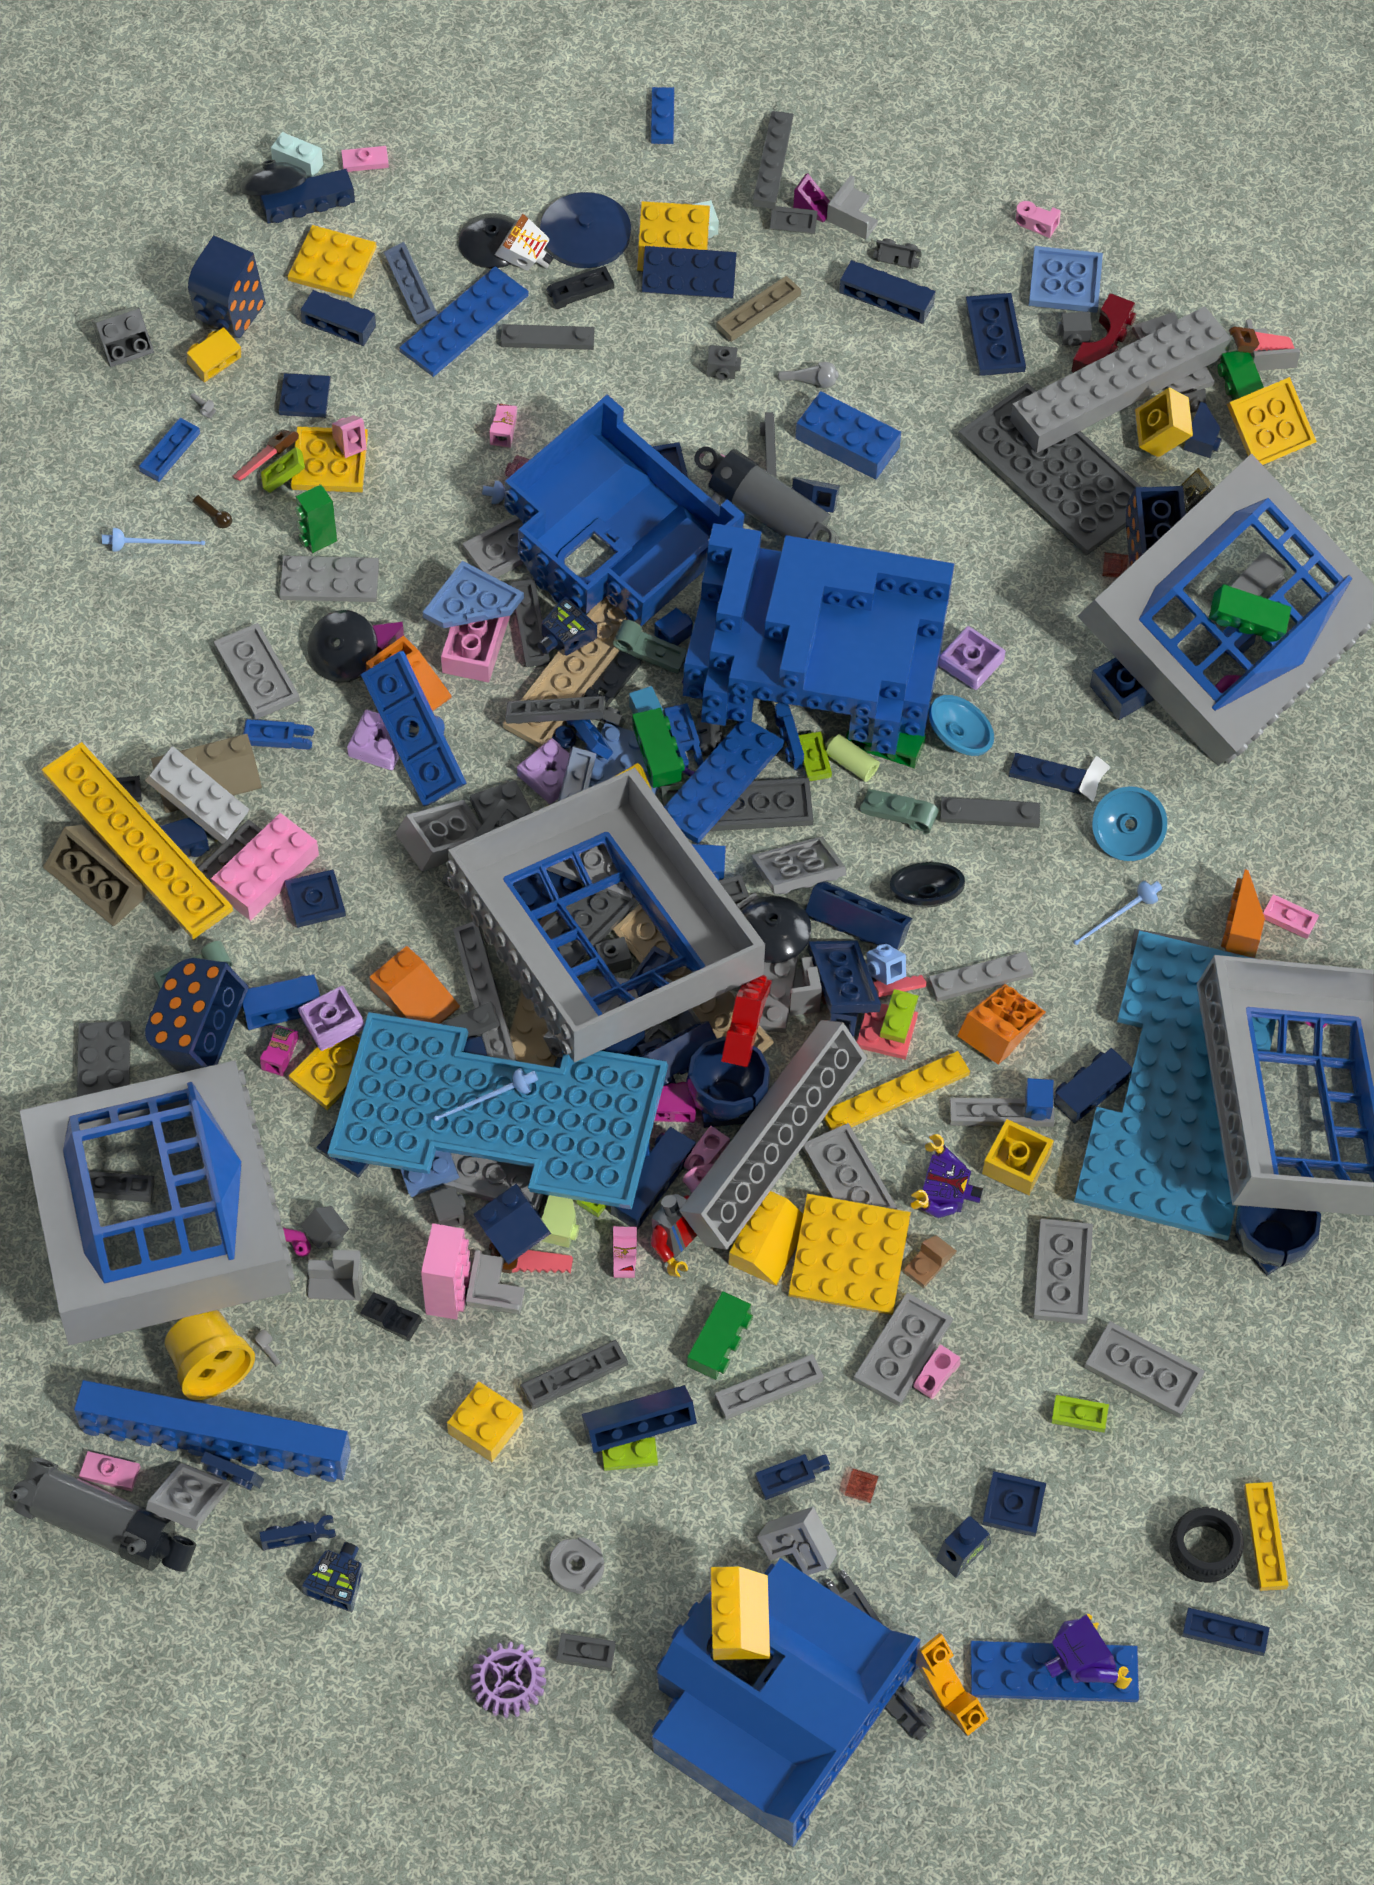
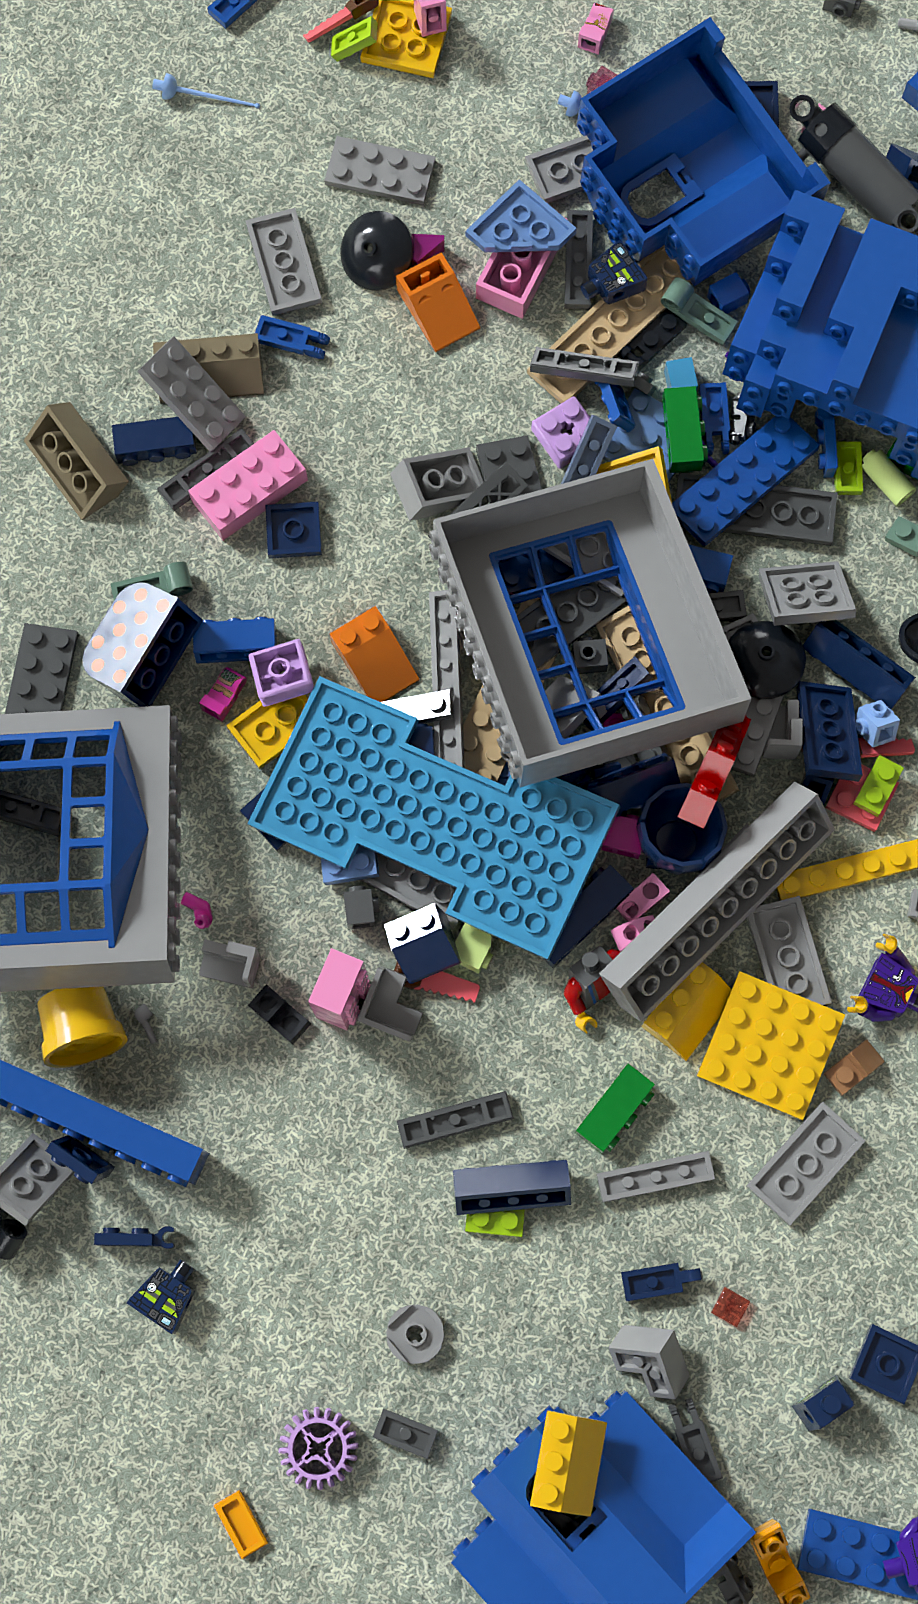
camera: 15 degrees right, 15 degrees up
(132, 785) = (125, 370): black plate -> none
(137, 840) = (120, 434): yellow plate -> none
(221, 519) = (282, 82): dark brown bar -> none
(316, 519) = (375, 102): green brick -> none
(325, 1227) = (230, 904): dark grey brick -> none
(363, 743) = (399, 377): lavender brick -> none
(414, 728) = (431, 361): blue plate -> none
(449, 1763) = (240, 1524): none -> light orange tile
(485, 1421) = (351, 1155): yellow brick -> none
(520, 1082) = (459, 794): light blue sword -> none
(565, 737) = (589, 397): dark blue plate -> none
(624, 1251) = (534, 994): bright pink leg -> none
(767, 429) = (874, 84): dark grey plate -> none
(937, 1371) = (835, 1198): bright pink leg -> none

